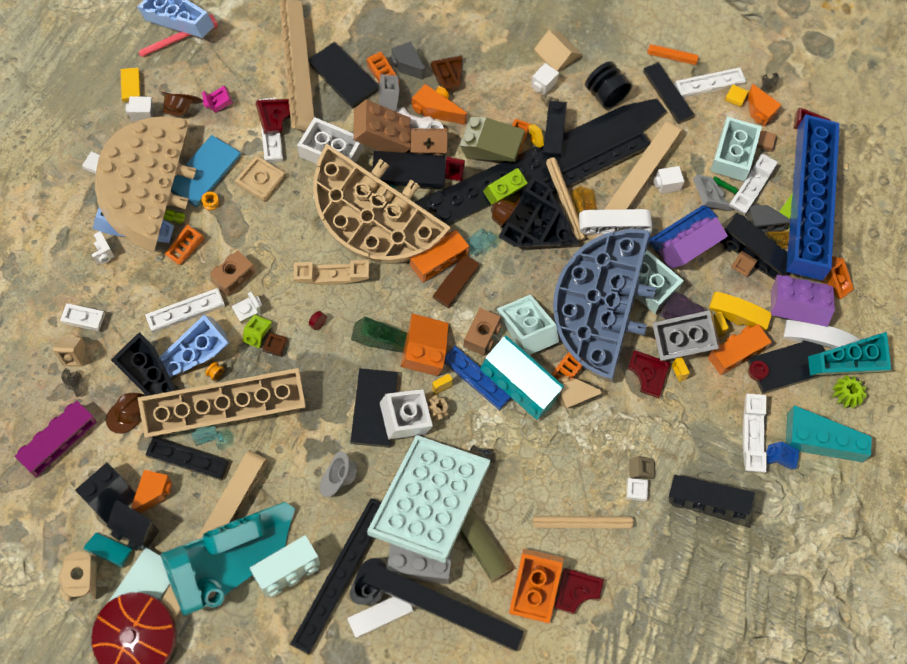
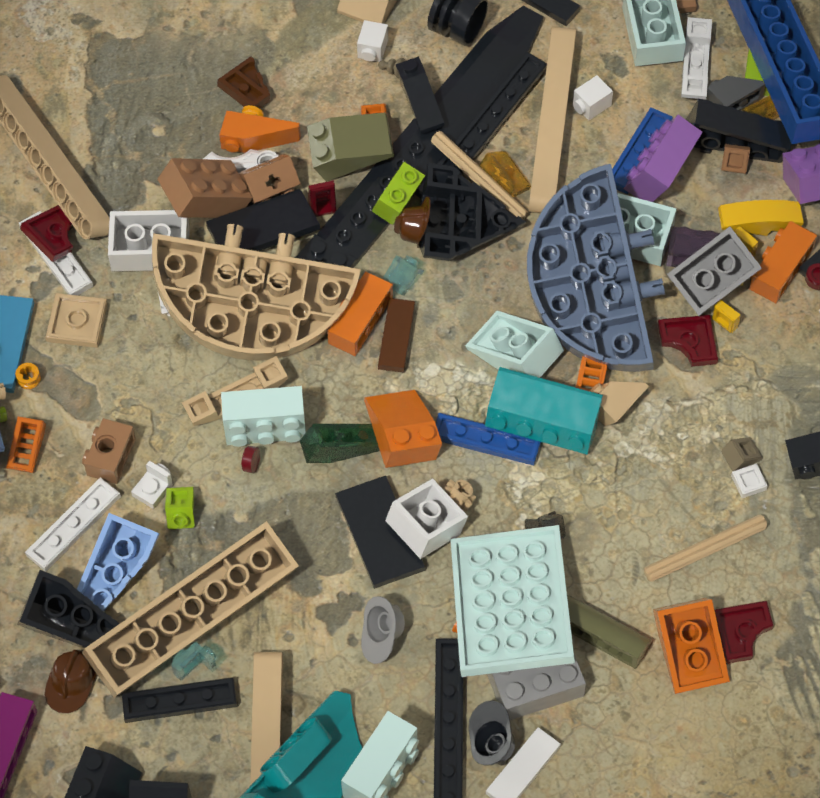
camera: 20 degrees left, 5 degrees down
(151, 490) = (159, 753): orange slope -> none
(214, 371) = (155, 579): light orange bush -> none
(275, 344) = (212, 513): reddish brown tile -> none
(338, 295) = (263, 415): none -> light aqua brick
(343, 74) = (111, 145): black tile -> none
(377, 61) = (148, 108): orange slope -> none
(388, 91) = (183, 139): light grey slope -> none
(407, 61) = (186, 92): dark grey slope -> none
(442, 384) = (448, 464): yellow tile -> none
(443, 606) = (595, 719): black tile -> none
(483, 321) = (464, 394): medium nougat brick -> none
(536, 135) = (400, 114): yellow tile -> none
(614, 220) = (552, 175): white beam -> none
(710, 193) = (651, 92): light grey wing -> none
(723, 184) = (662, 75): green piece -> none

